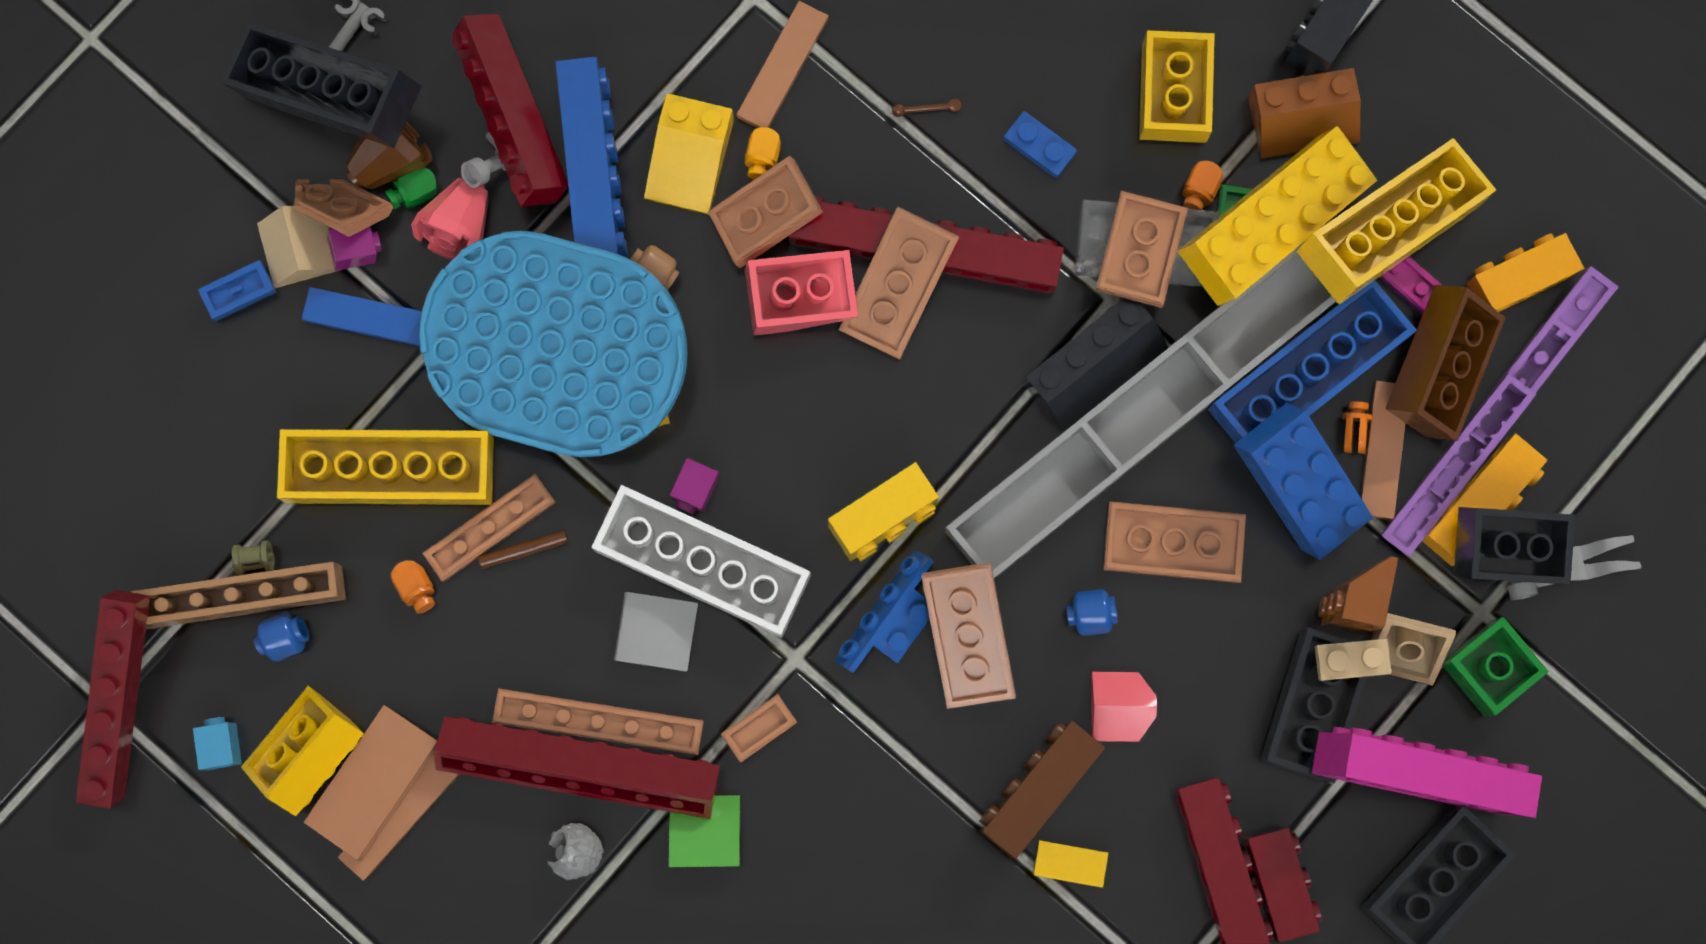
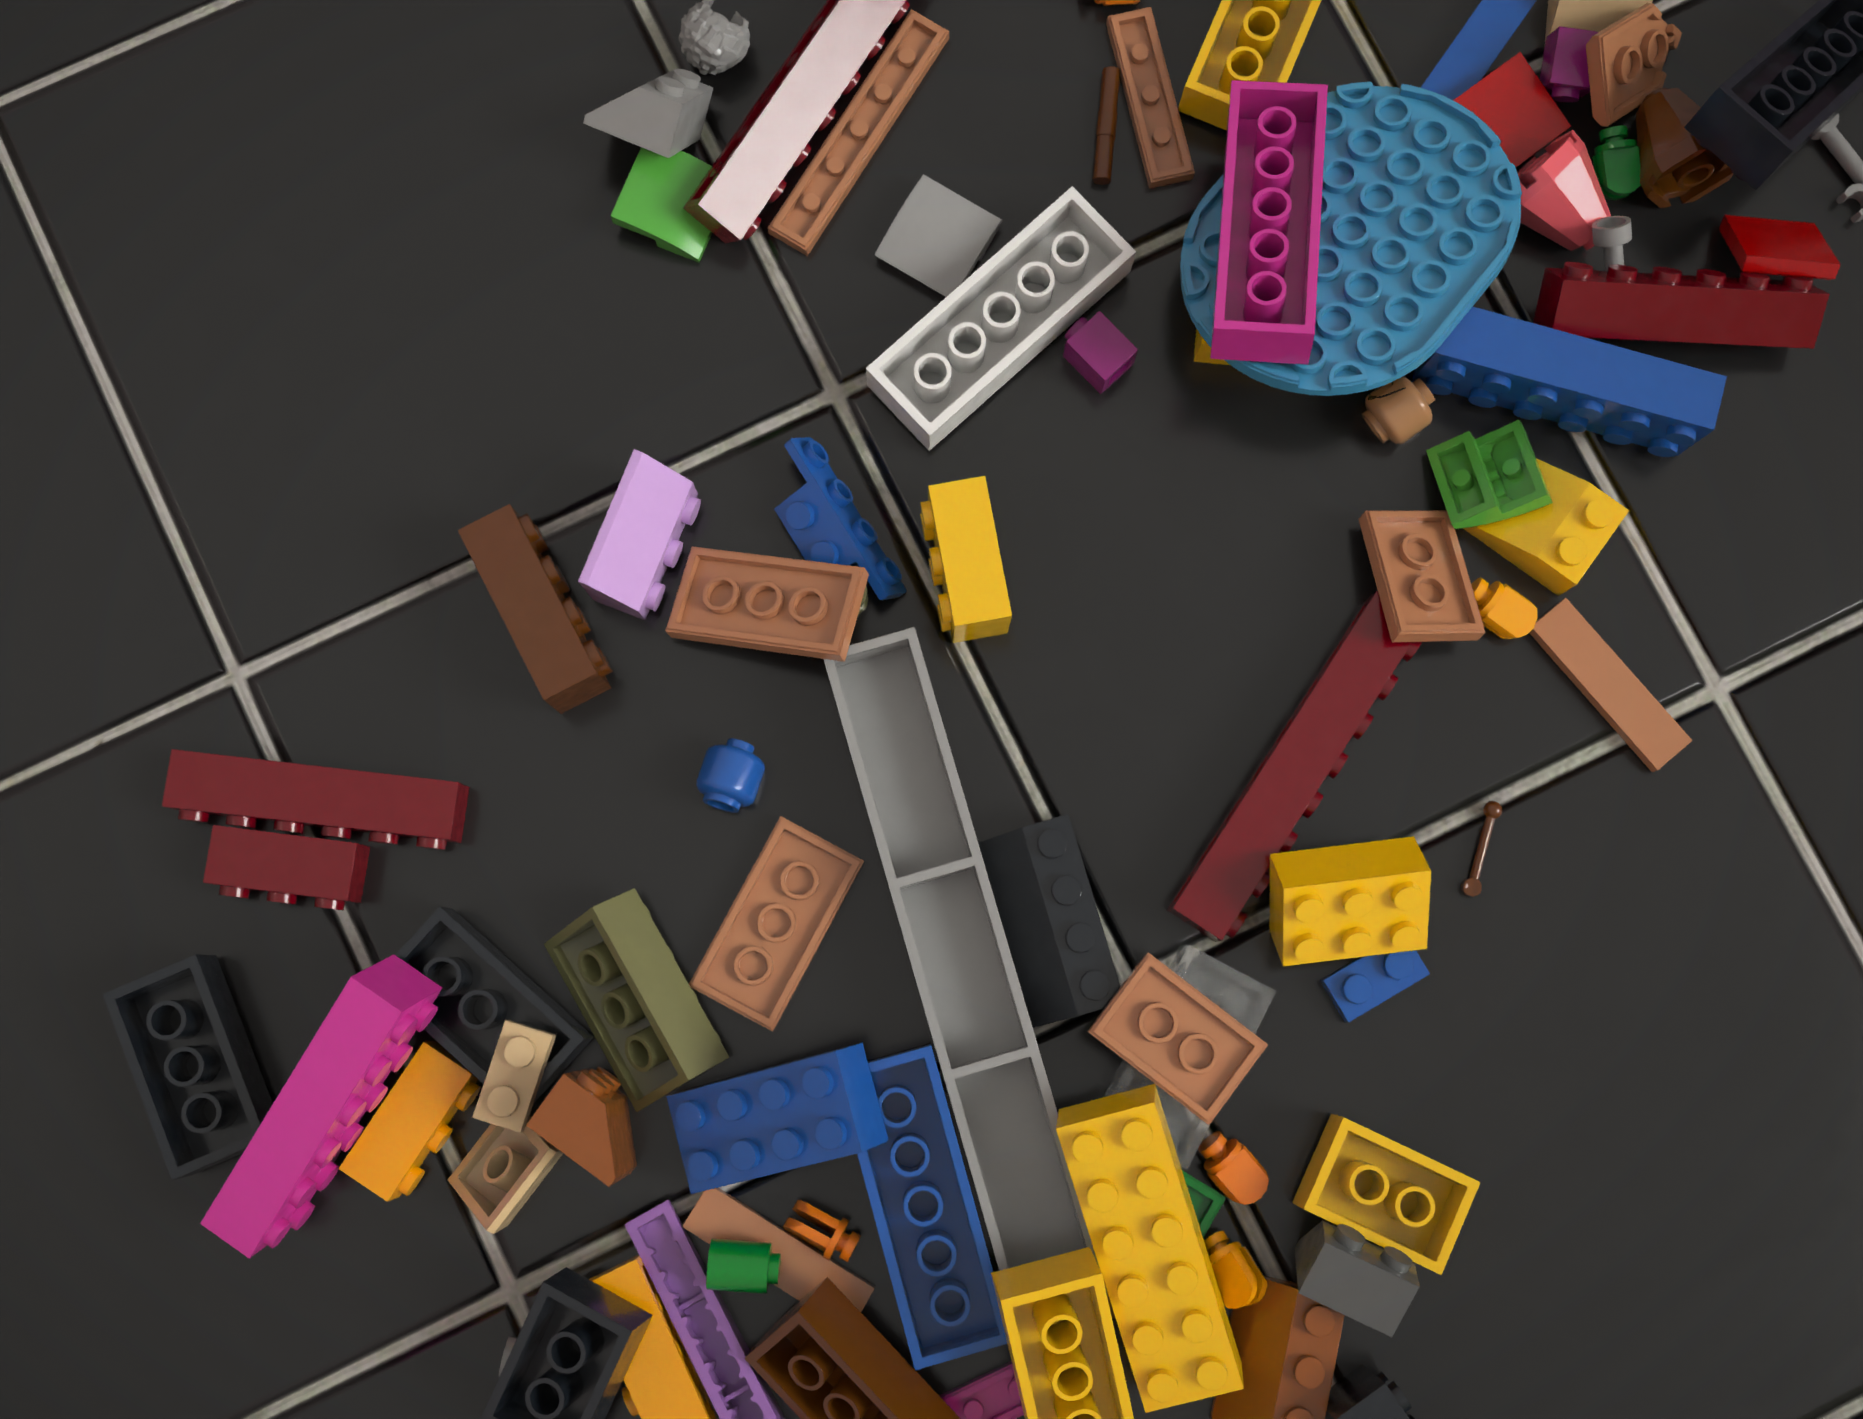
camera: 110 degrees right, 0 degrees up
(404, 273) = (1516, 109): none -> red tile
(435, 60) = (1779, 247): none -> red tile
(575, 396) = (1270, 223): none -> dark pink brick
(652, 868) = (658, 115): none -> light grey slope
(675, 193) = (1488, 476): none -> bright green slope
(759, 728) = (768, 314): nougat tile -> none
(800, 291) = (1298, 576): coral slope -> none
(899, 282) = (1261, 706): nougat tile -> none
(960, 740) = (640, 537): none -> lavender slope
(1004, 177) = (1349, 901): none -> yellow brick
(1070, 863) = (436, 617): yellow tile -> none
(1121, 706) = (600, 763): coral slope -> none
(1239, 85) = (1355, 1276): none -> dark grey slope
(1266, 160) = (1235, 1272): none -> light orange arm
(1266, 610) = (635, 999): none -> olive slope
(1402, 466) = (742, 1266): none -> green brick
(1410, 719) = (411, 1123): none -> light orange brick
(1494, 667) = (427, 1269): green brick -> none

